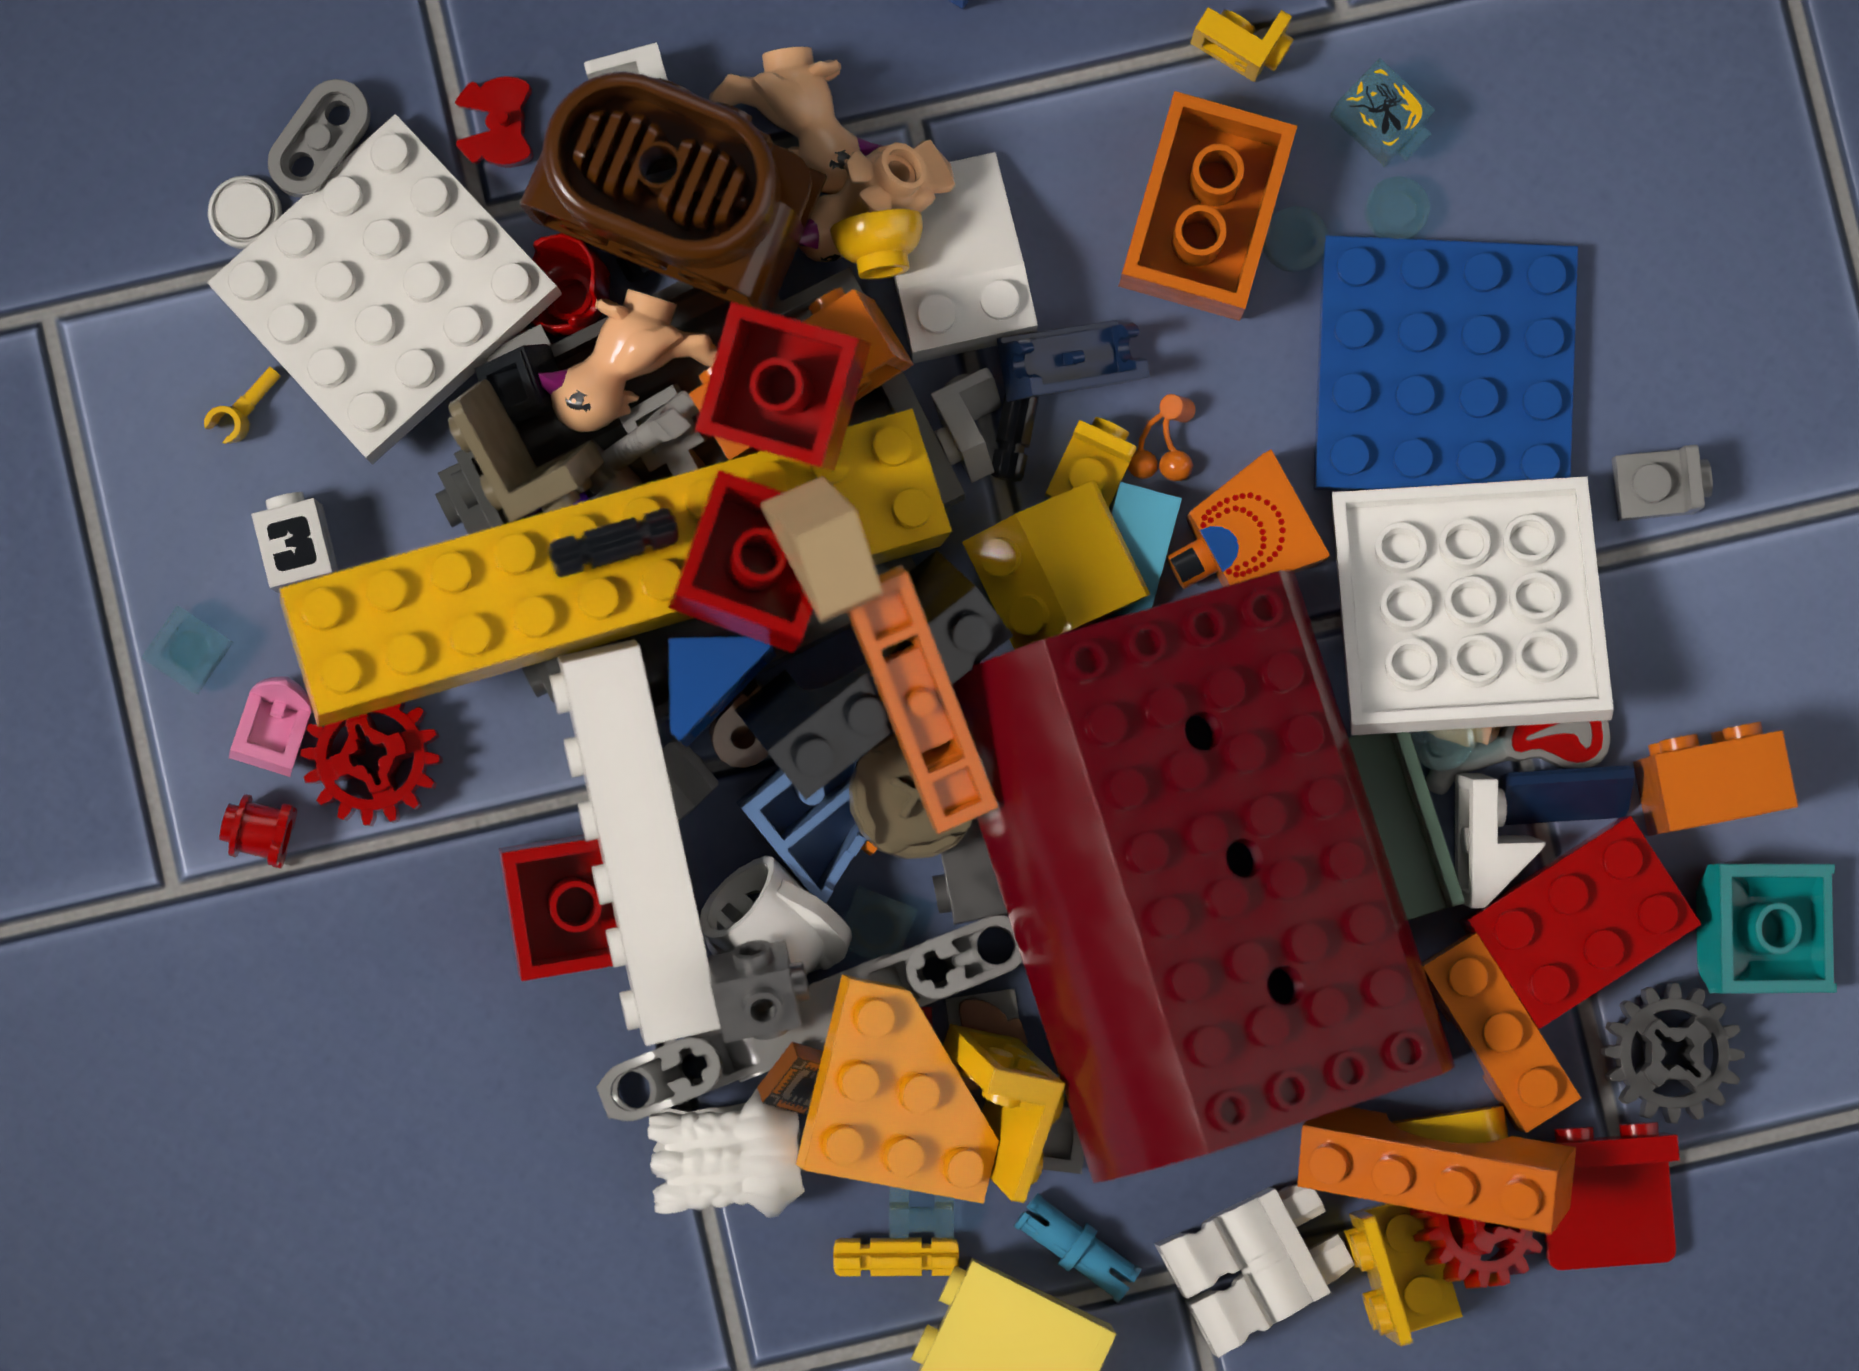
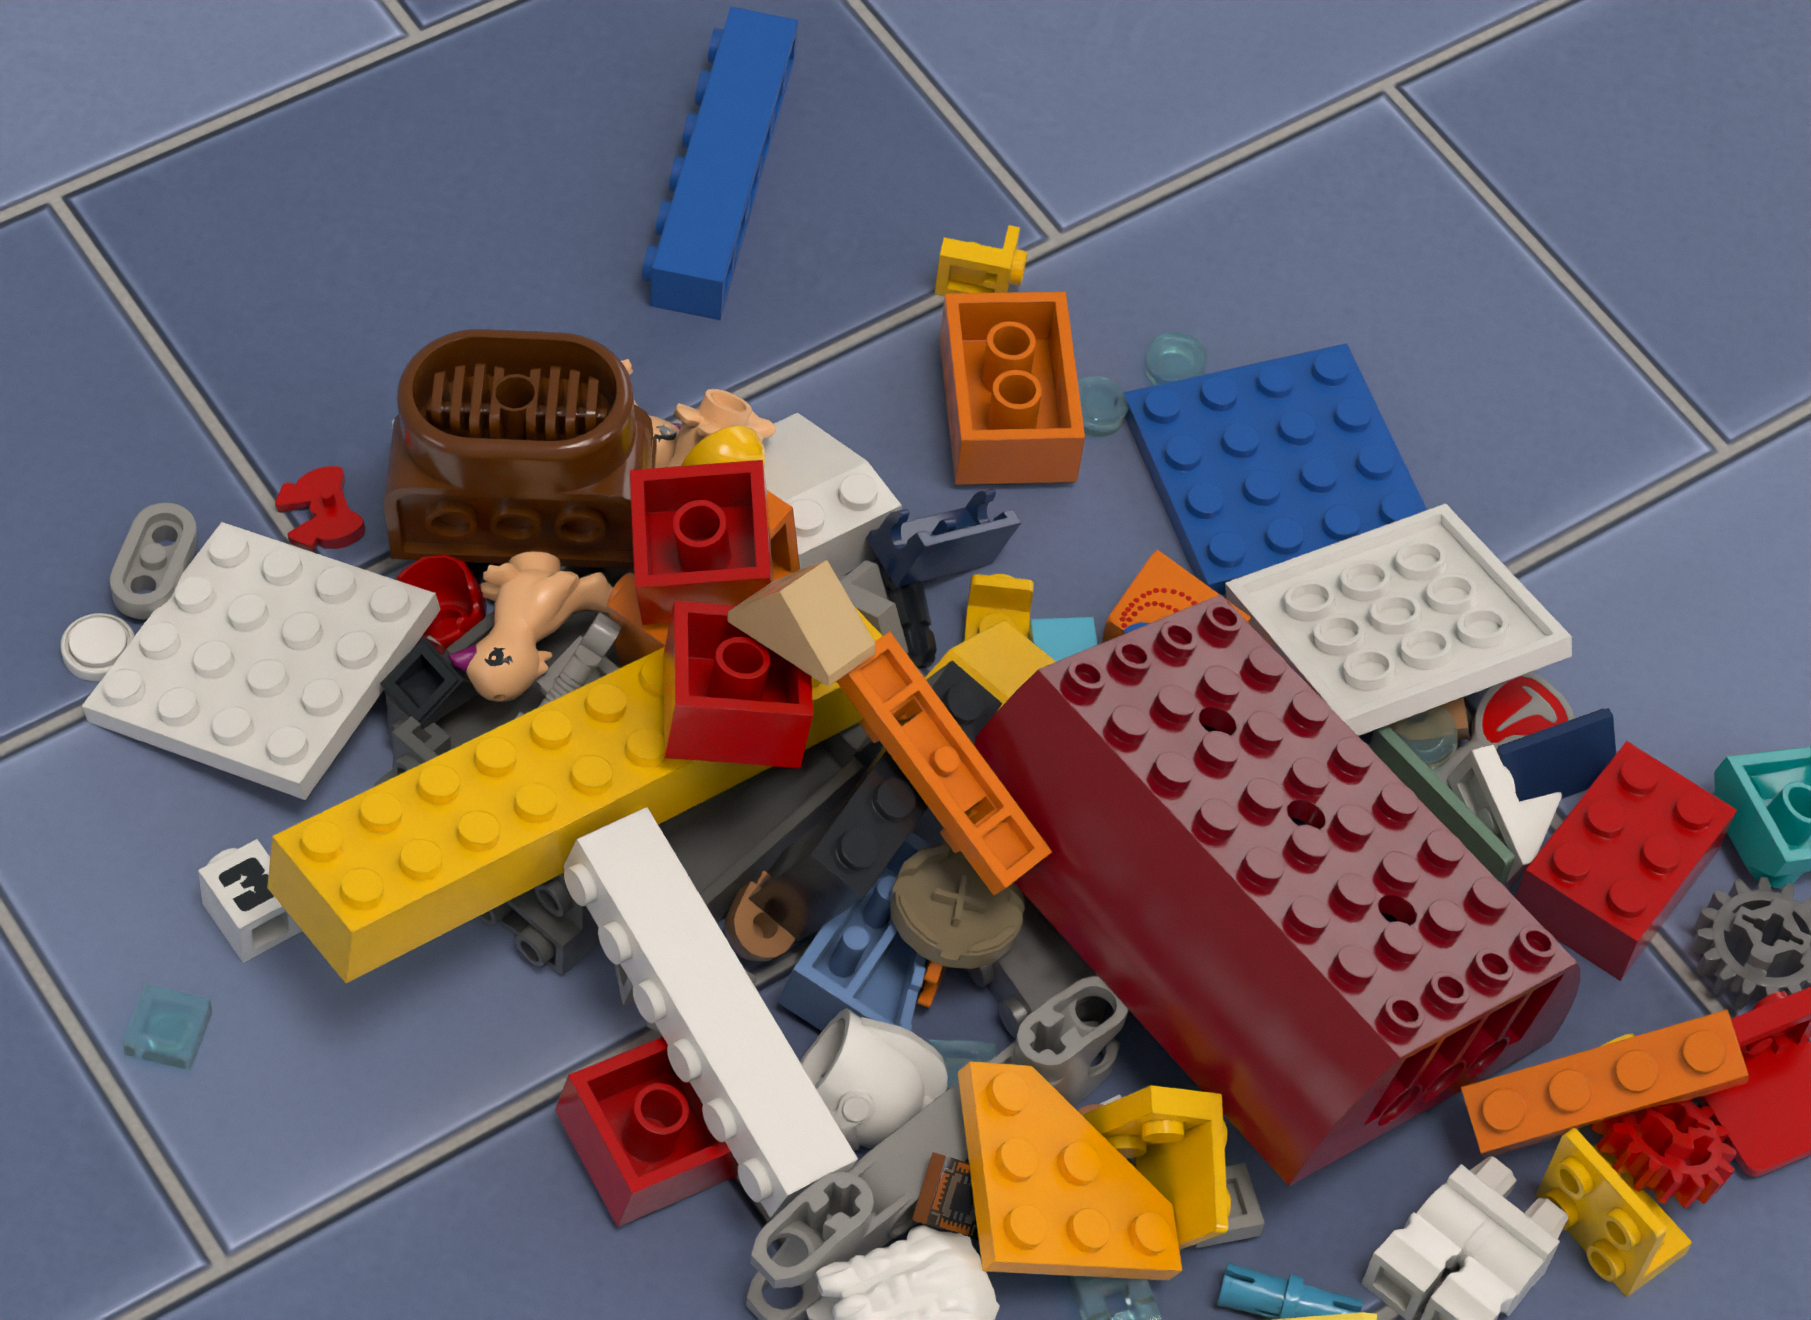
camera: 25 degrees left, 30 degrees down
(242, 407) = (150, 806): yellow hand -> none
(258, 830) = (298, 1166): red brick -> none
(272, 725) = (281, 1061): bright pink plate -> none
(383, 787) = (387, 1089): red gear -> none
(509, 473) = (420, 698): dark tan bracket -> none
(613, 542) = (589, 715): black axle -> none
(708, 677) = (723, 836): blue slope -> none
(757, 990) = (883, 1104): flat silver brick -> none
(1174, 464) = (1057, 566): orange piece -> none
(1384, 114) = (1131, 288): clear light blue brick -> none
(1499, 1032) = (1622, 977): orange arch -> none
(1661, 483) = (1512, 501): light grey bracket -> none
(1716, 782) = (1690, 692): orange brick -> none

